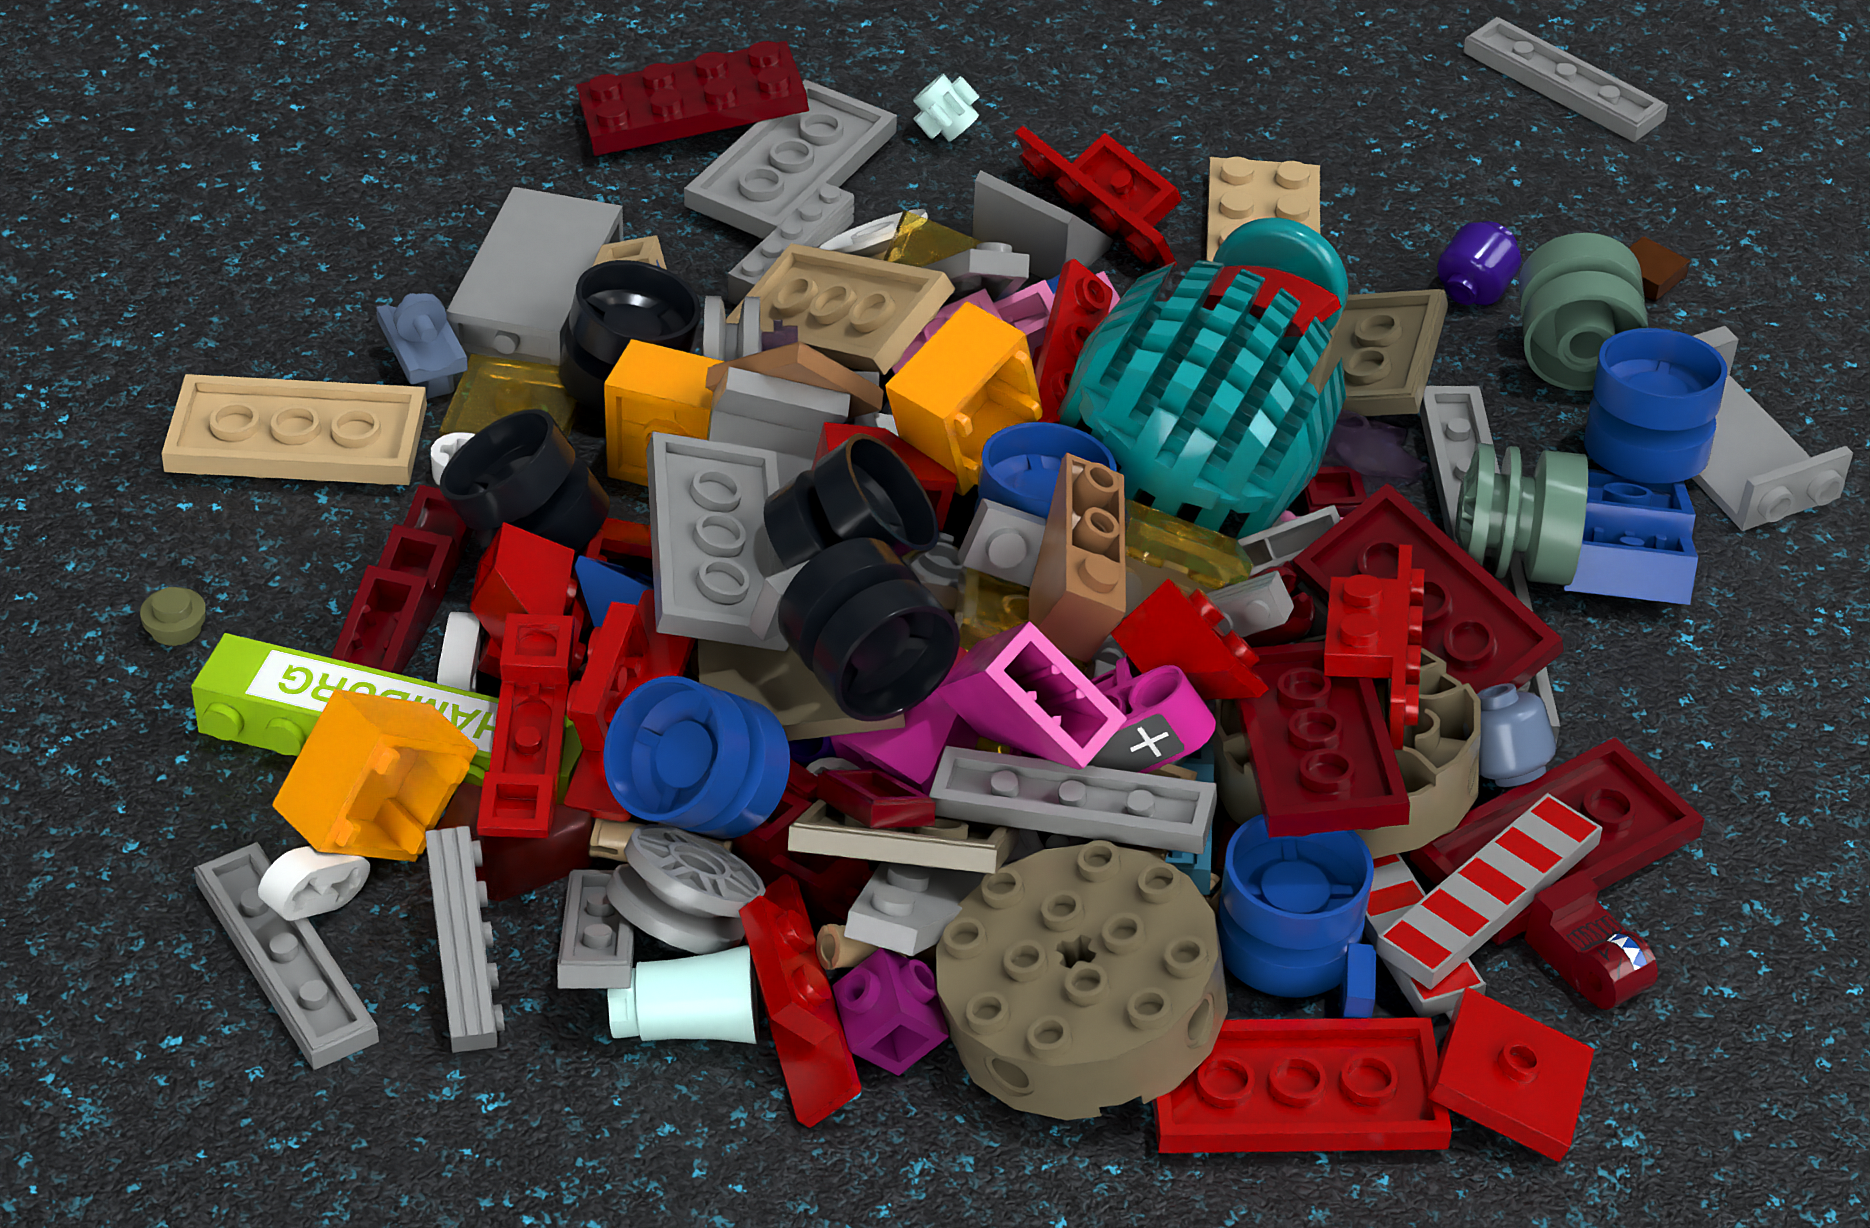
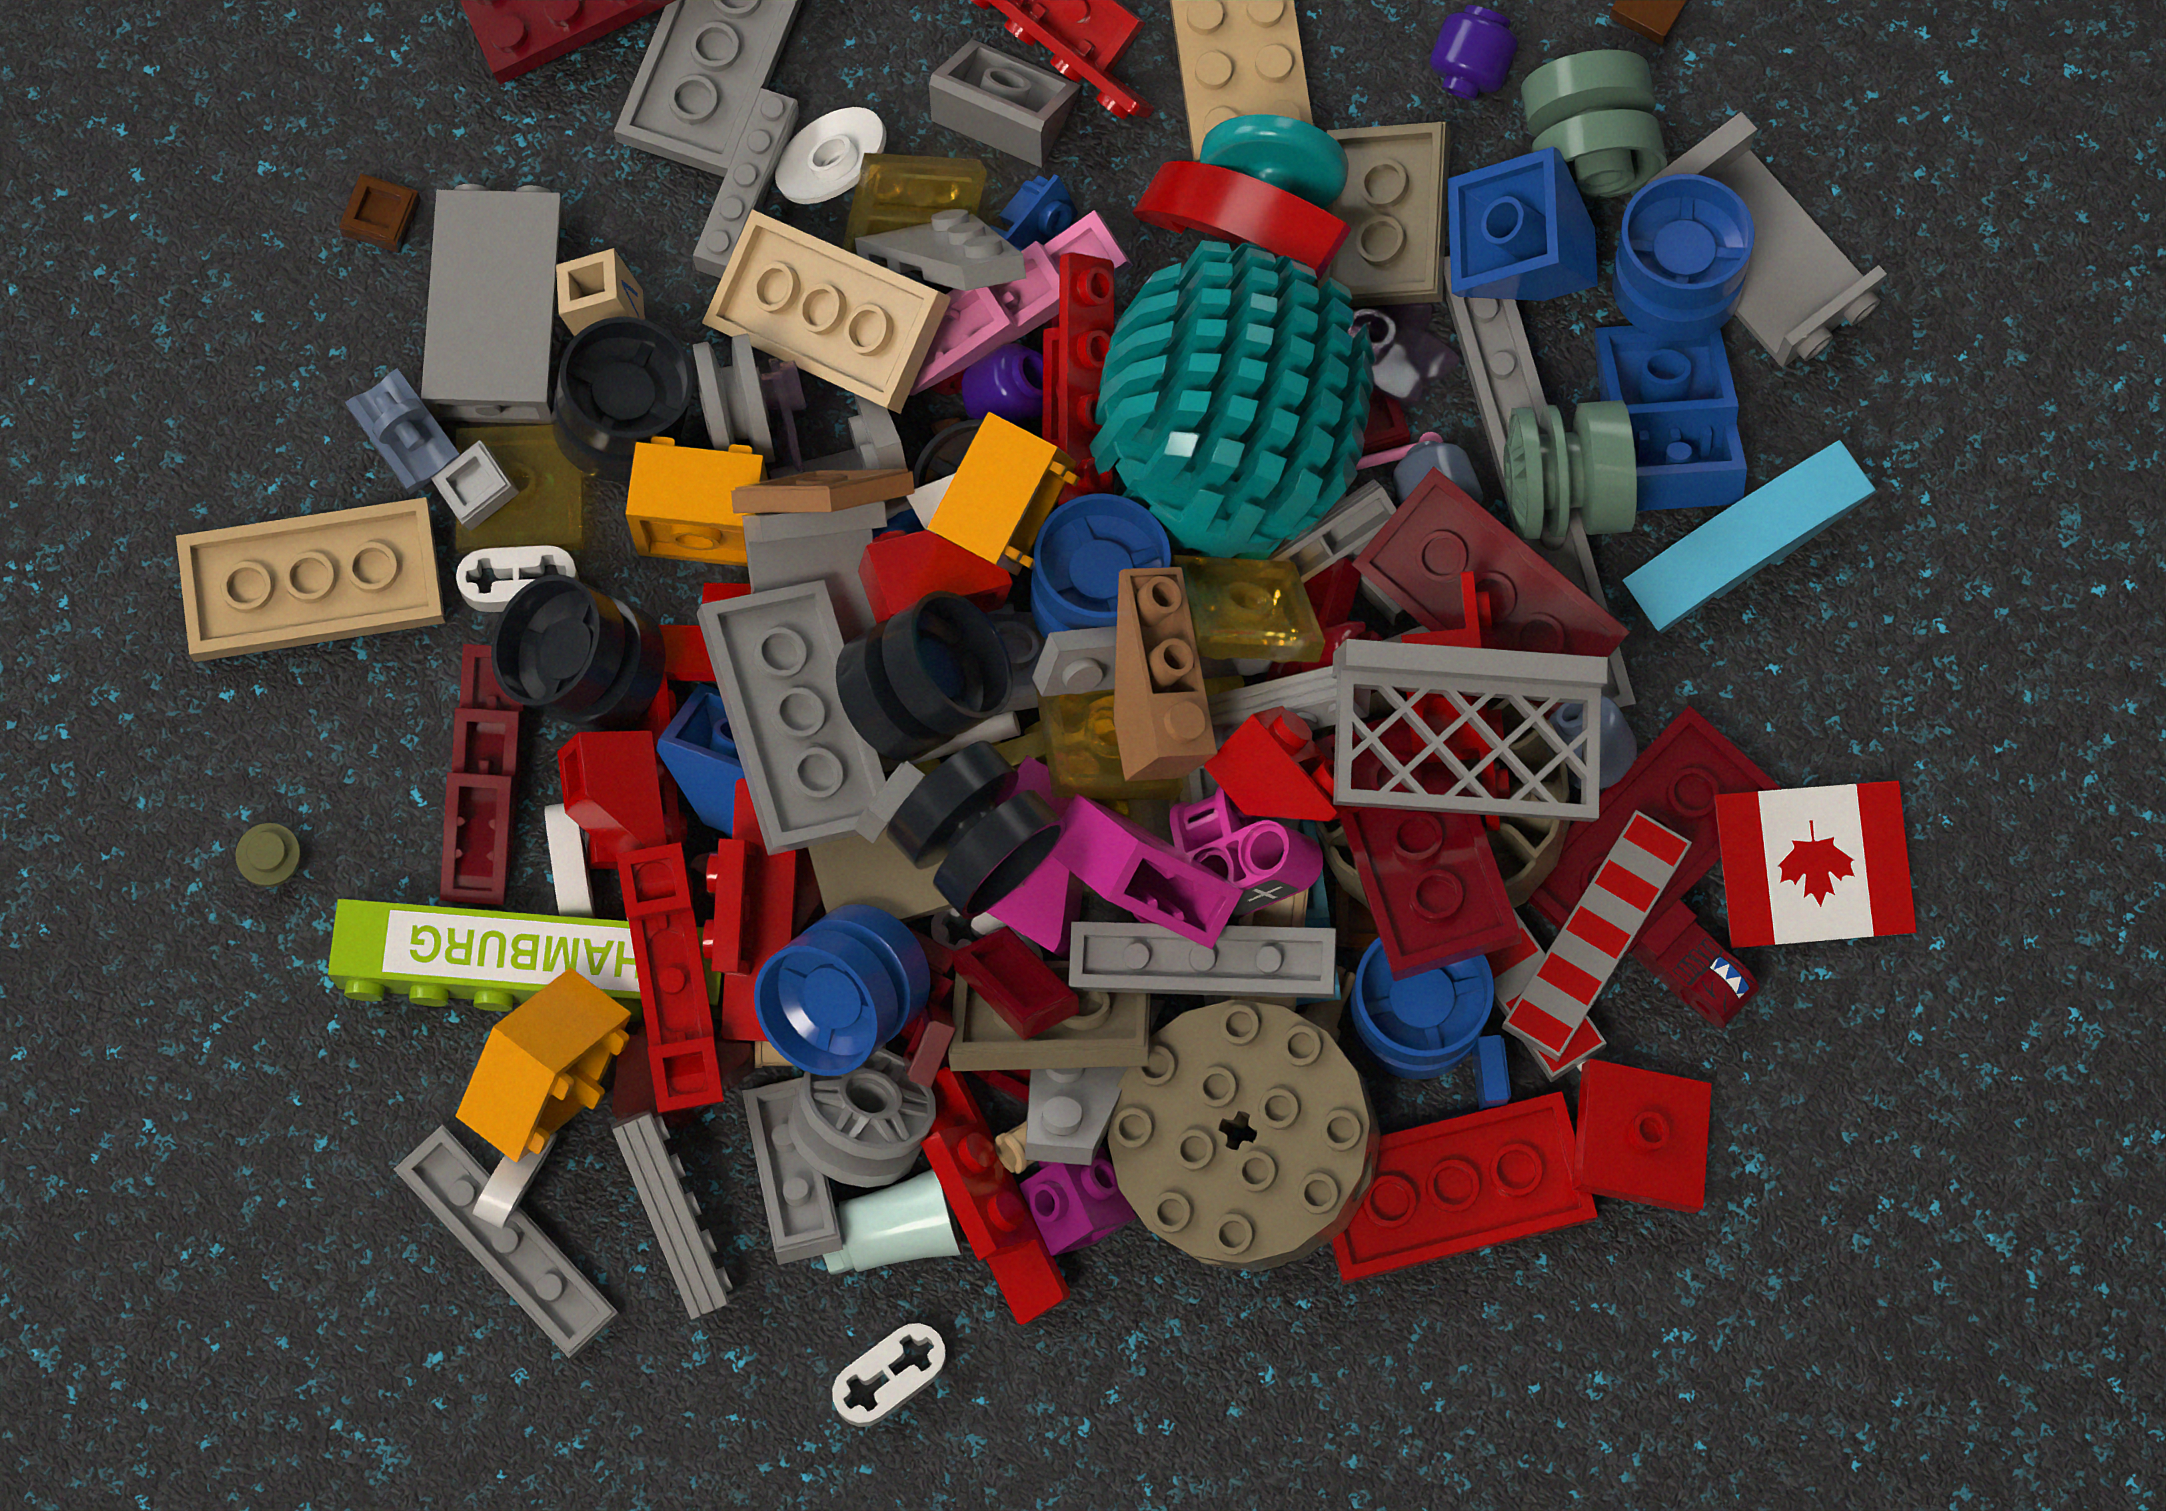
camera: 10 degrees left, 30 degrees up
(457, 216) = (379, 213): none -> reddish brown tile
(473, 384) = (475, 485): none -> light grey tile
(645, 1137) = (880, 1361): none -> white beam
(770, 831) = (928, 1044): none -> dark red tile
(1394, 584) = (1468, 673): none -> light grey fence
(1504, 365) = (1520, 231): none -> blue slope
(1695, 622) = (1750, 536): none -> medium azure slope
(1731, 889) = (1815, 864): none -> sticker

